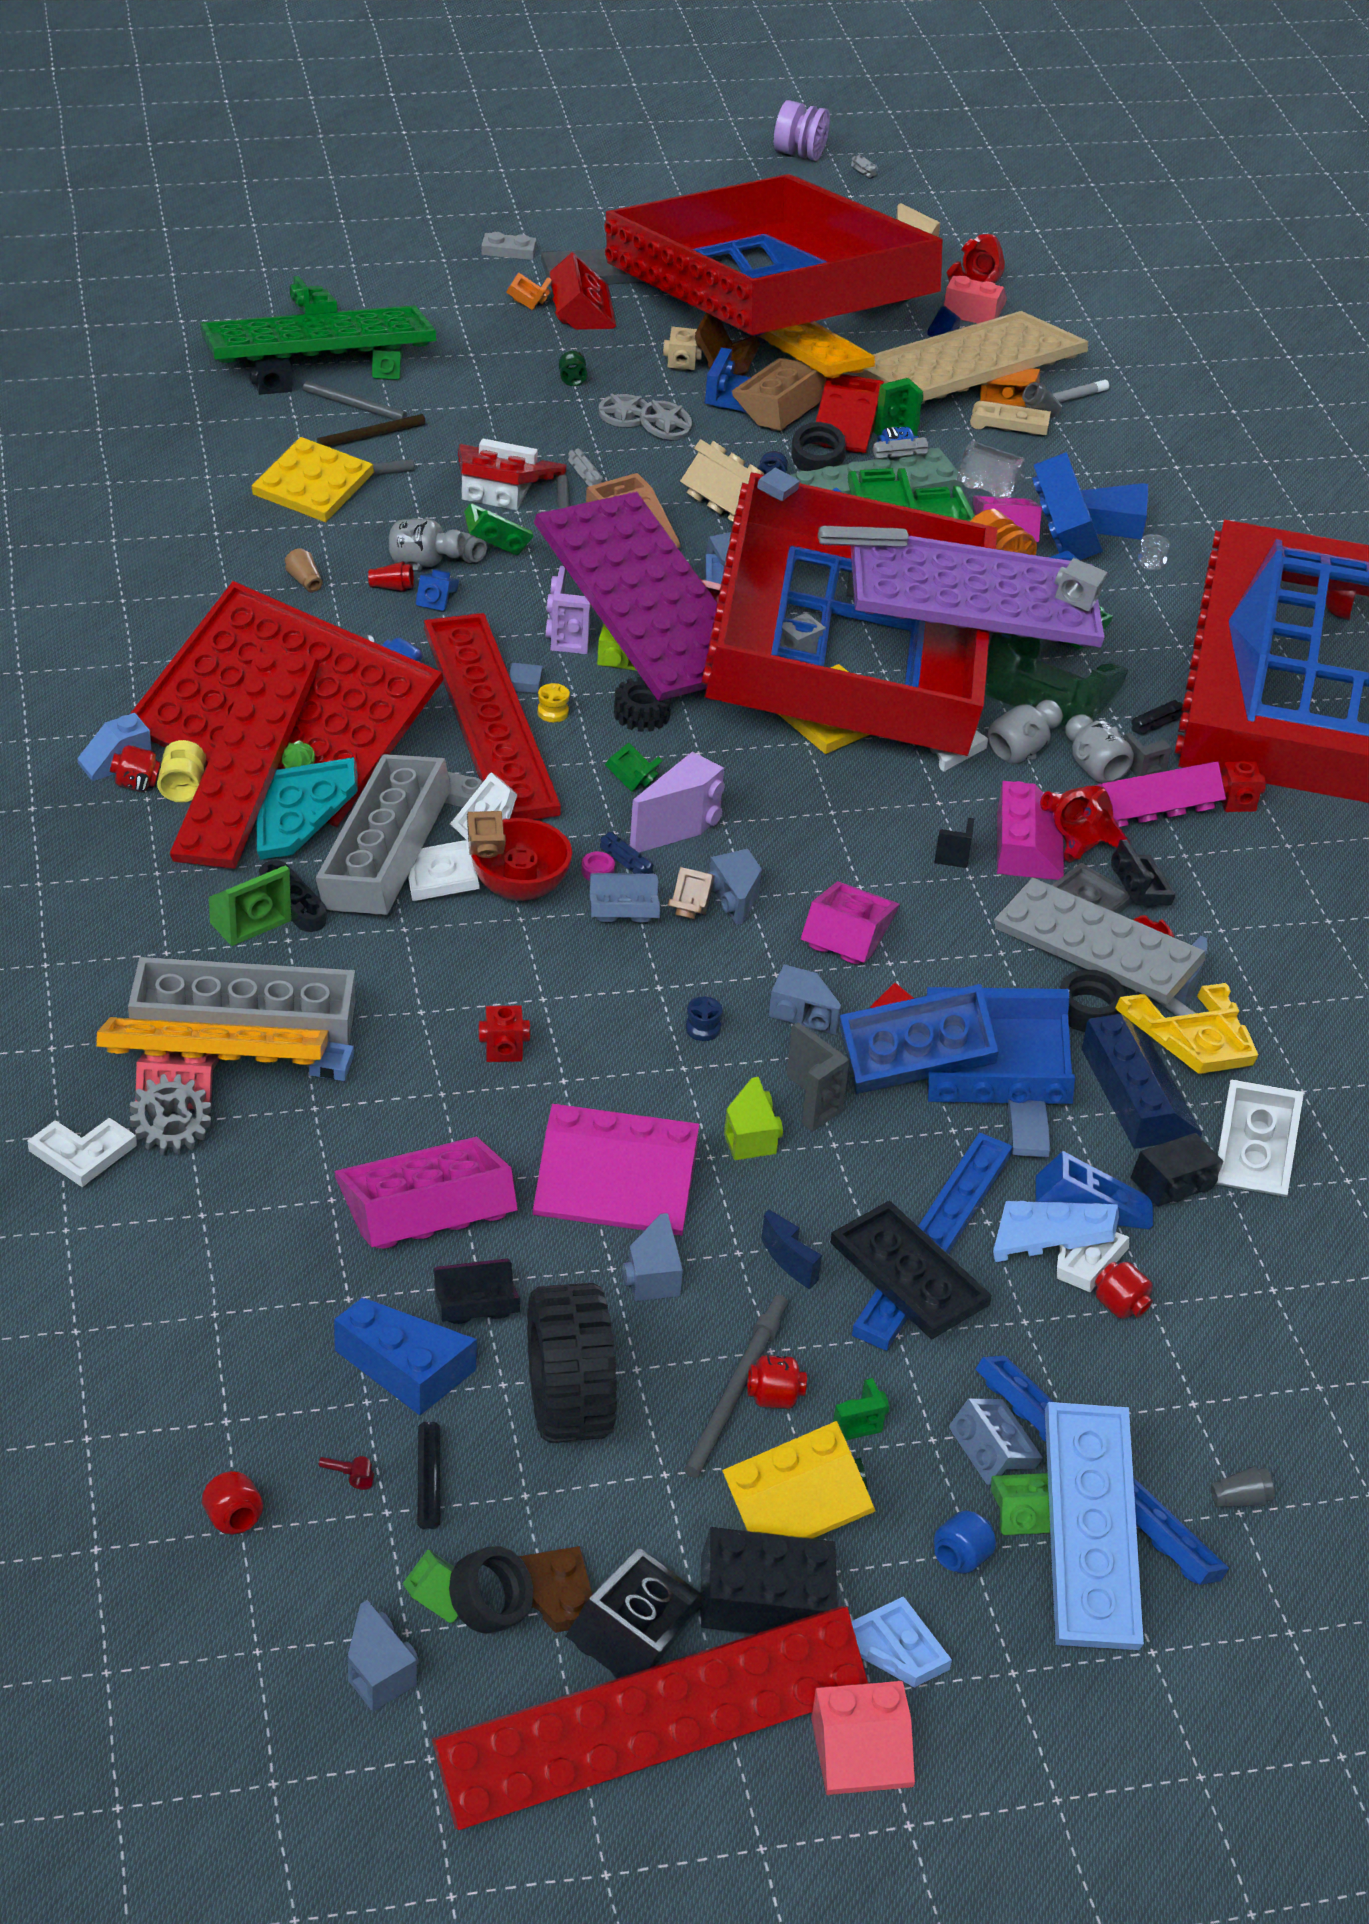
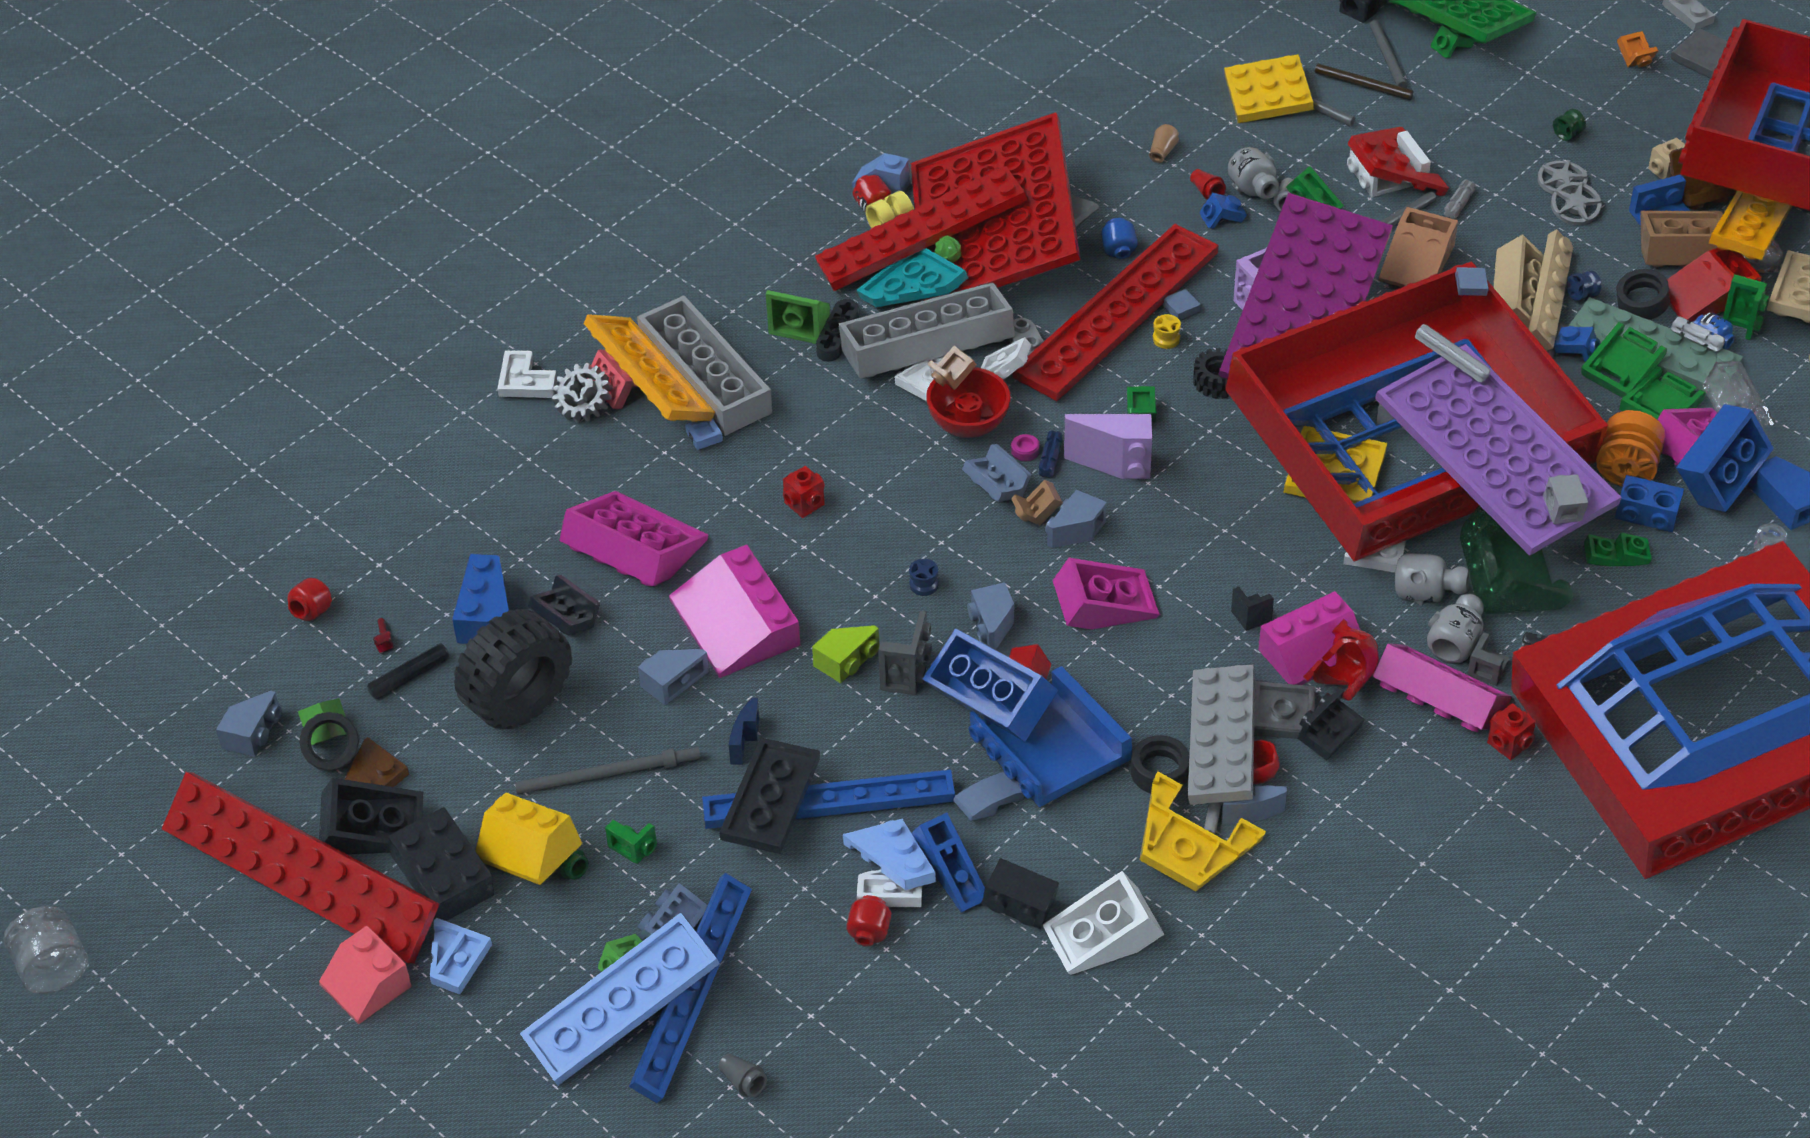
camera: 60 degrees right, 5 degrees up
(581, 295) = (1669, 78): red slope -> none
(776, 1382) = (616, 783): red head -> none
(964, 1542) = (561, 946): blue head -> none
(1136, 1082) = (1096, 832): dark blue slope -> none

